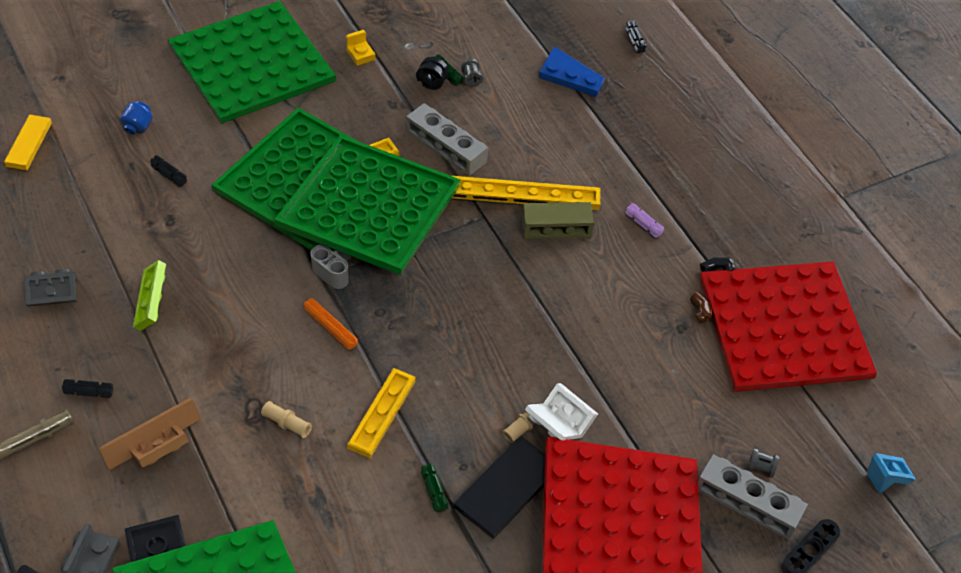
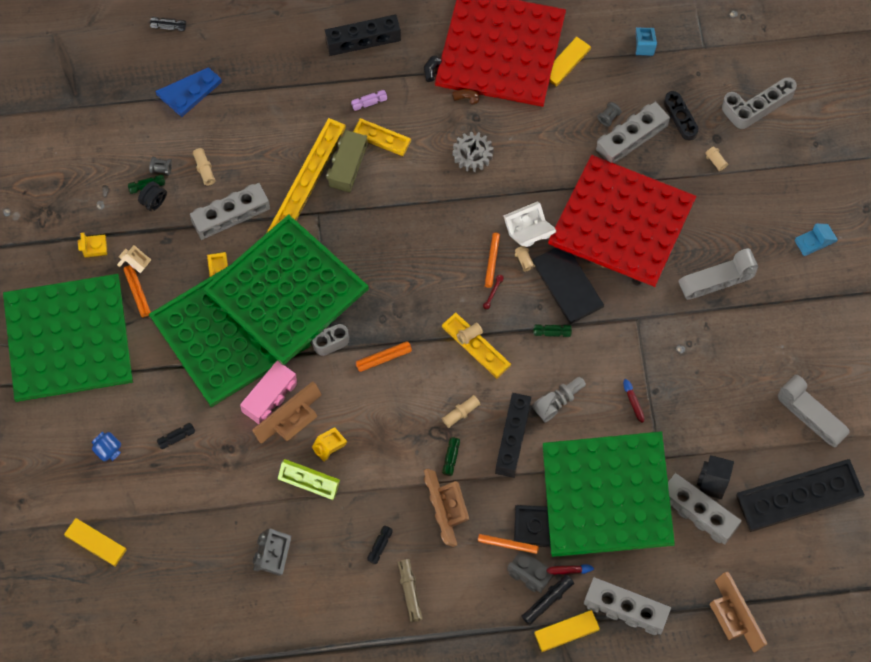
camera: 65 degrees left, 15 degrees up
(120, 522) = (508, 544): none -> orange bar
(201, 301) = (328, 443): none -> yellow bracket
(223, 257) = (291, 416): none -> medium nougat bracket
(224, 427) = (451, 456): none -> dark green axle
(243, 230) = (269, 392): none -> bright pink brick
(270, 482) = (513, 435): none -> black brick
(324, 95) = (137, 291): none -> orange axle
(326, 508) = (547, 405): none -> light grey piece
(355, 80) = (135, 258): none -> tan bracket
(389, 394) = (469, 333): none -> tan pin
(481, 411) = (499, 279): none -> dark red hinge
(488, 106) = (204, 166): none -> tan pin
(502, 396) = (492, 260): none -> orange bar
(605, 245) = (383, 137): none -> yellow tile
(632, 333) = (466, 146): none -> light grey gear
(719, 189) = (362, 35): none -> black brick
(812, 399) = (568, 60): none -> yellow tile

